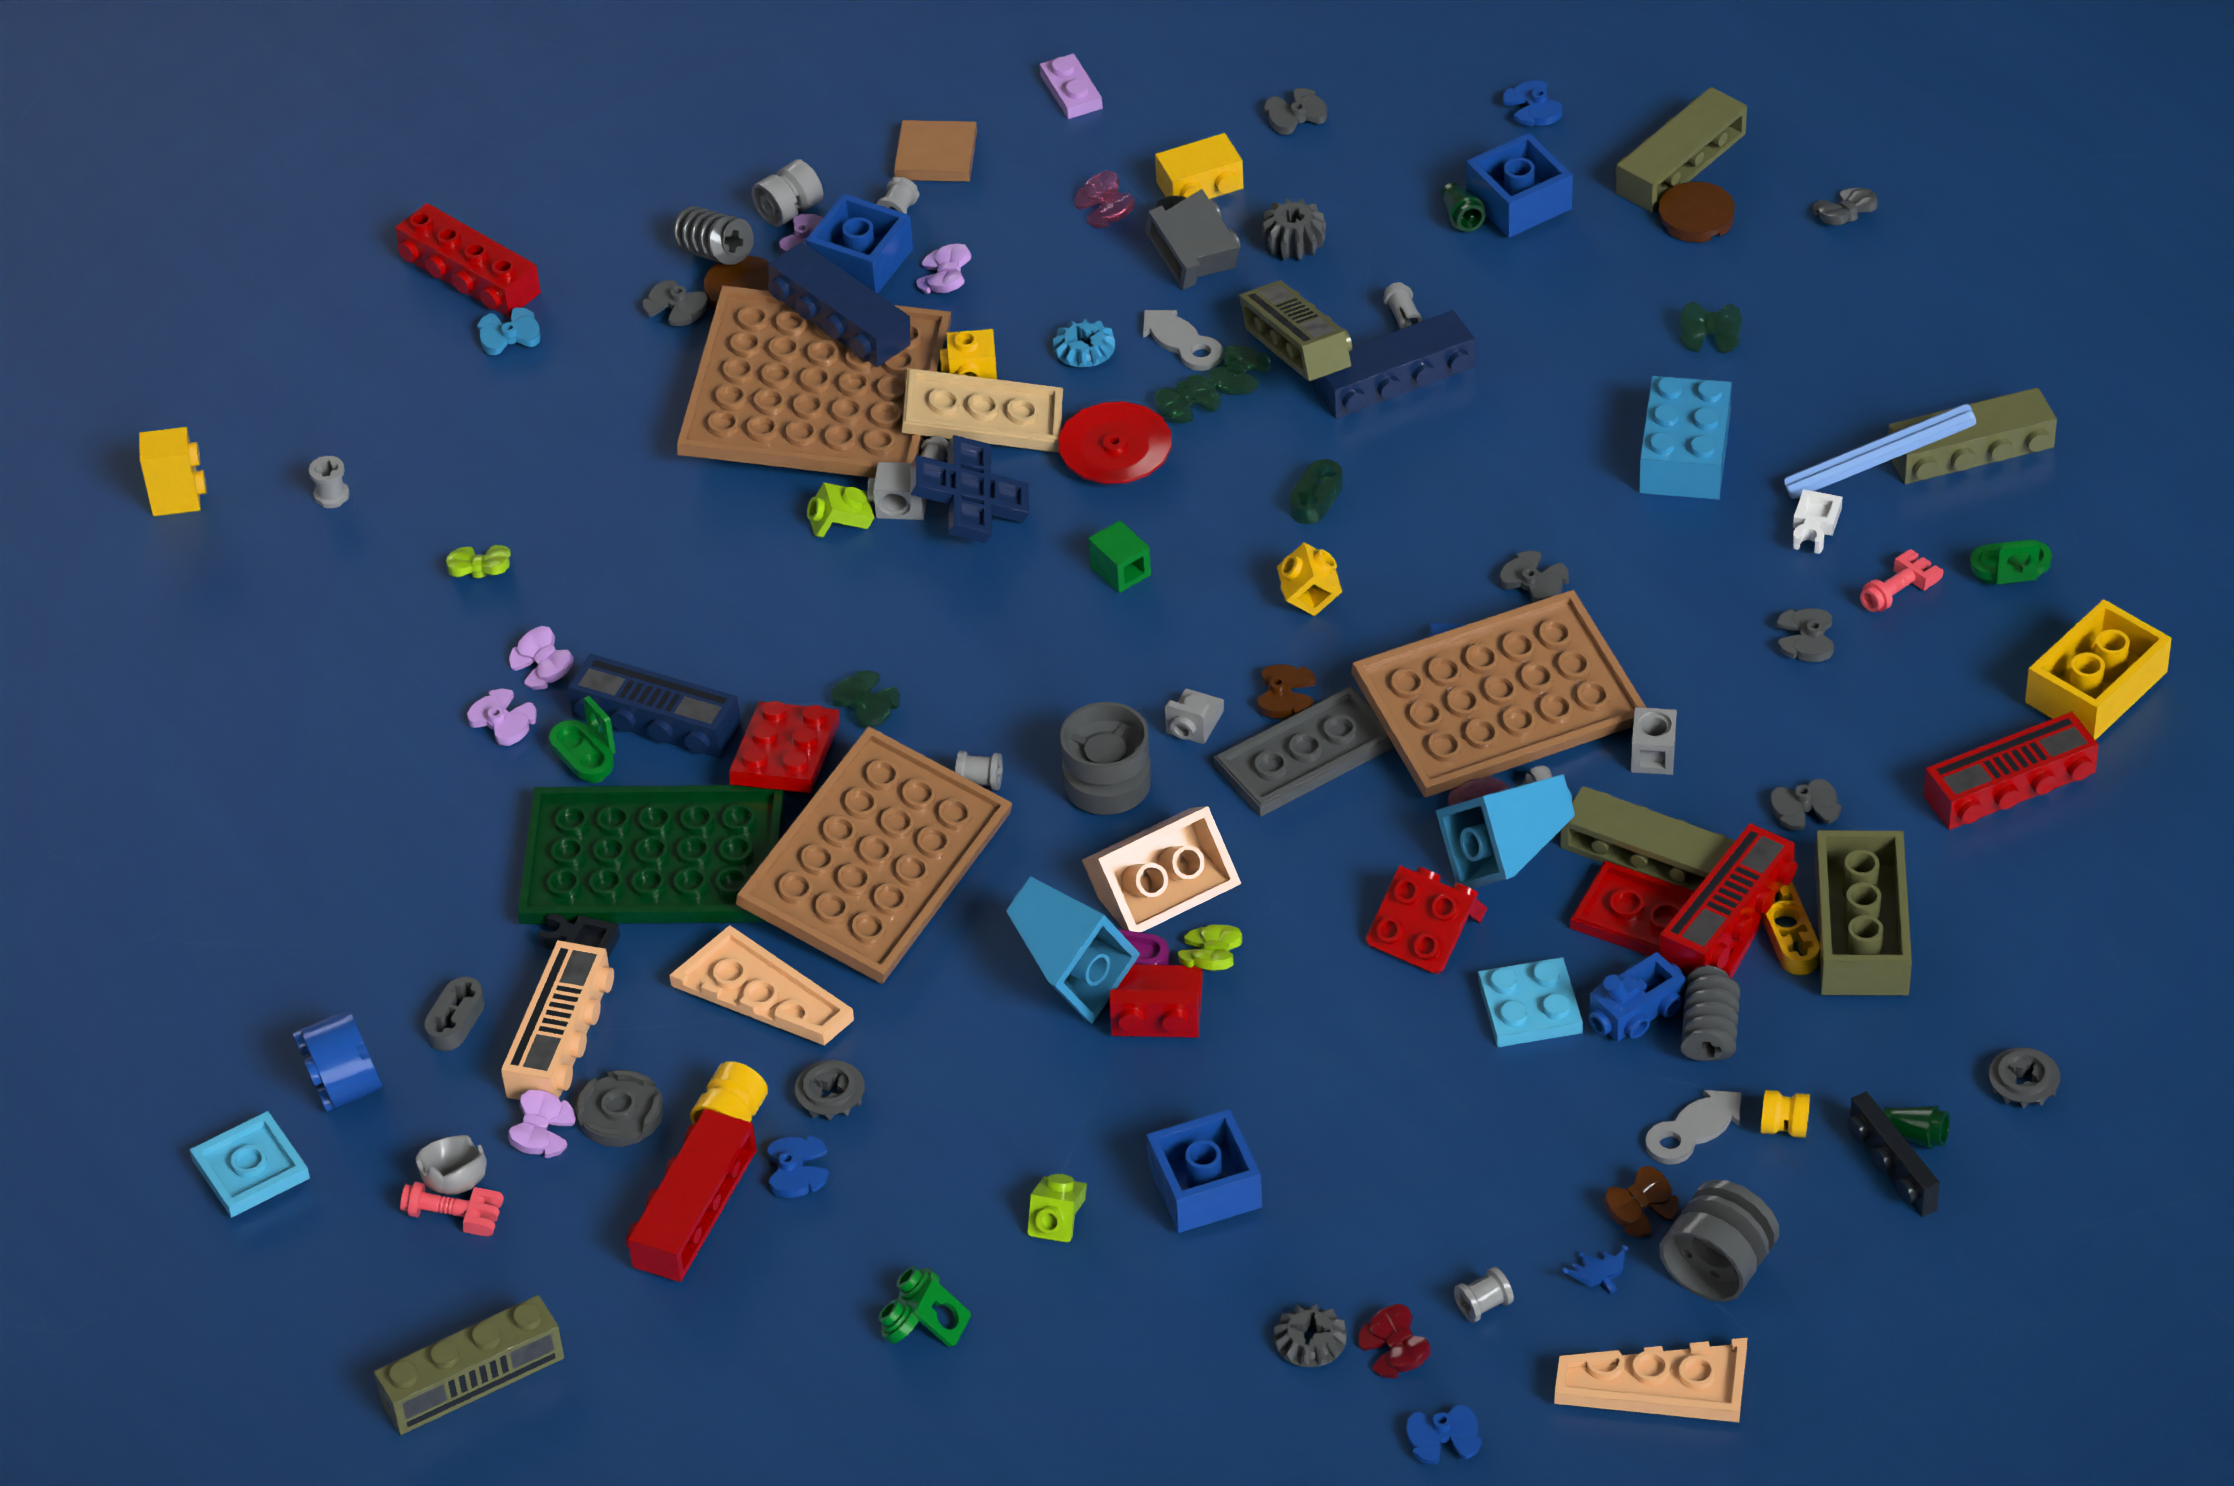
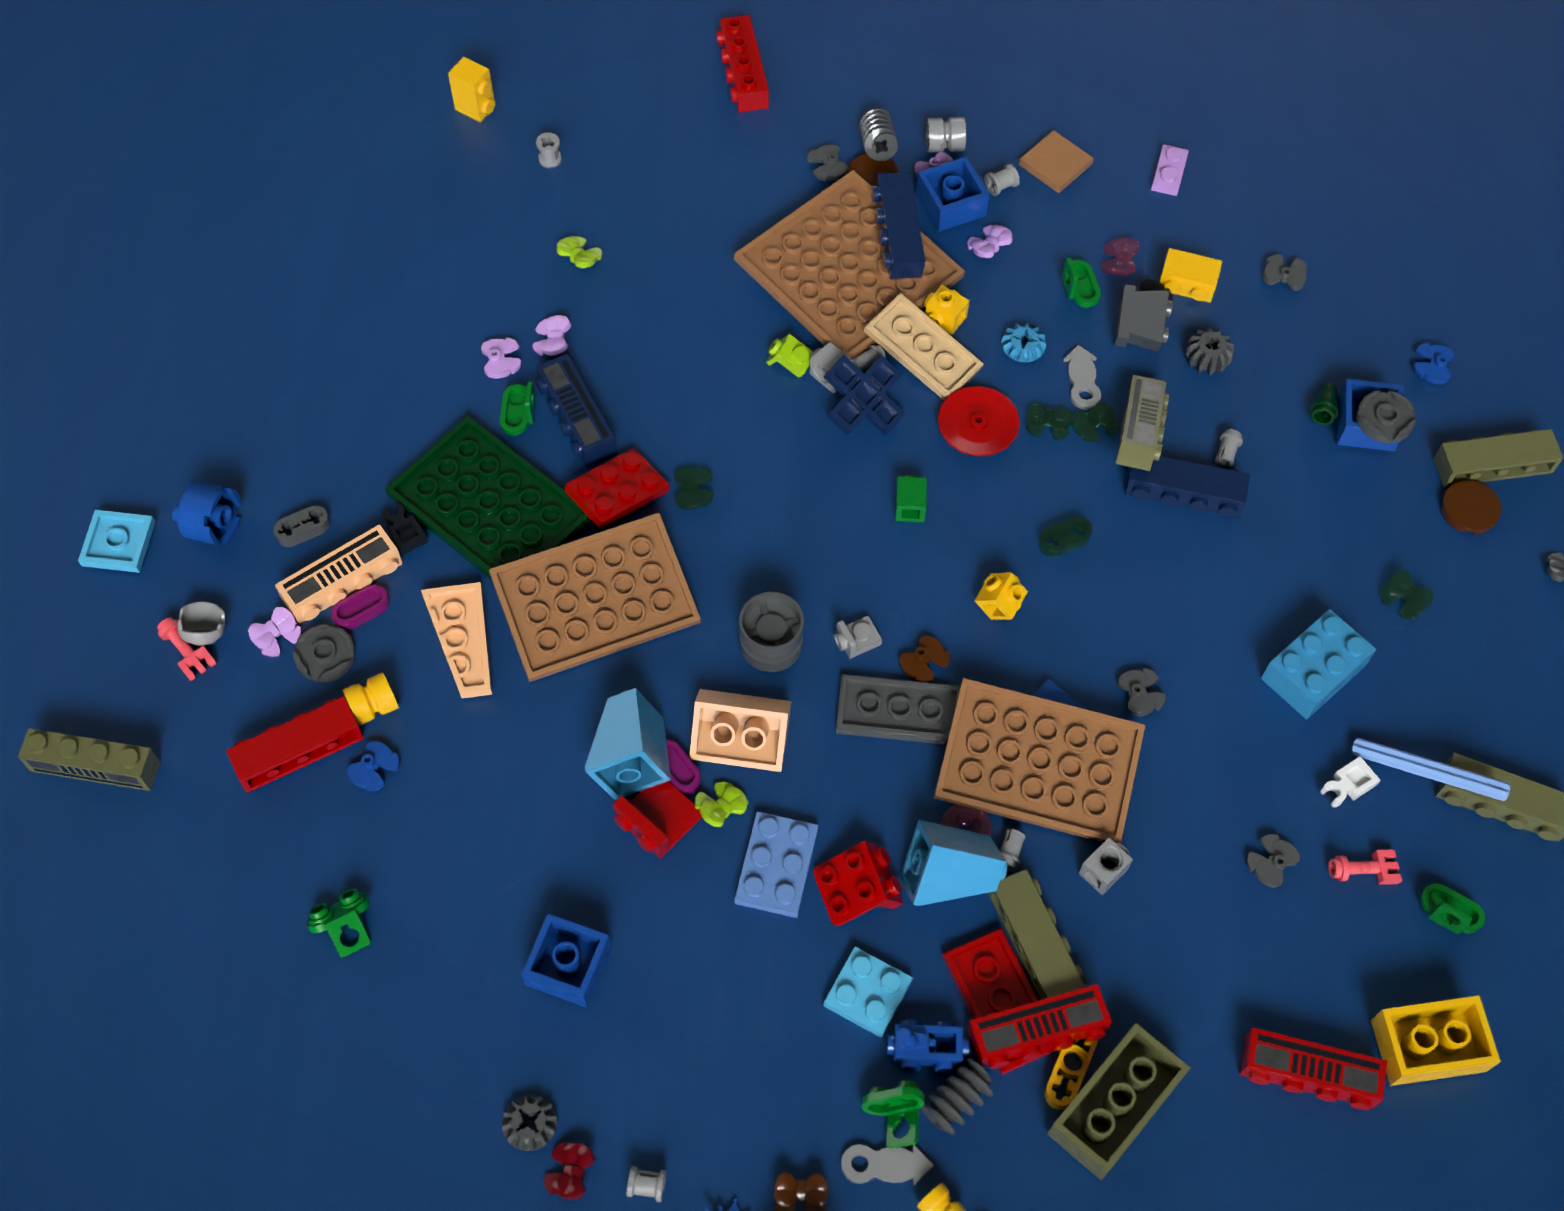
camera: 35 degrees right, 15 degrees up
(521, 329) = (733, 125): dark azure piece -> none
(611, 1041) = (360, 607): none -> magenta tile
(825, 1076) = (422, 727): dark grey gear -> none
(981, 769) = (705, 583): light grey bush -> none
(1055, 1206) = (476, 910): lime bracket -> none
(1089, 249) = (1080, 283): none -> green bracket
(1323, 961) = (776, 864): none -> medium blue plate
(1541, 169) = (1386, 416): none -> dark grey tile
(1656, 1060) = (895, 1103): none -> green bracket
(1790, 805) = (1153, 977): dark grey piece -> none

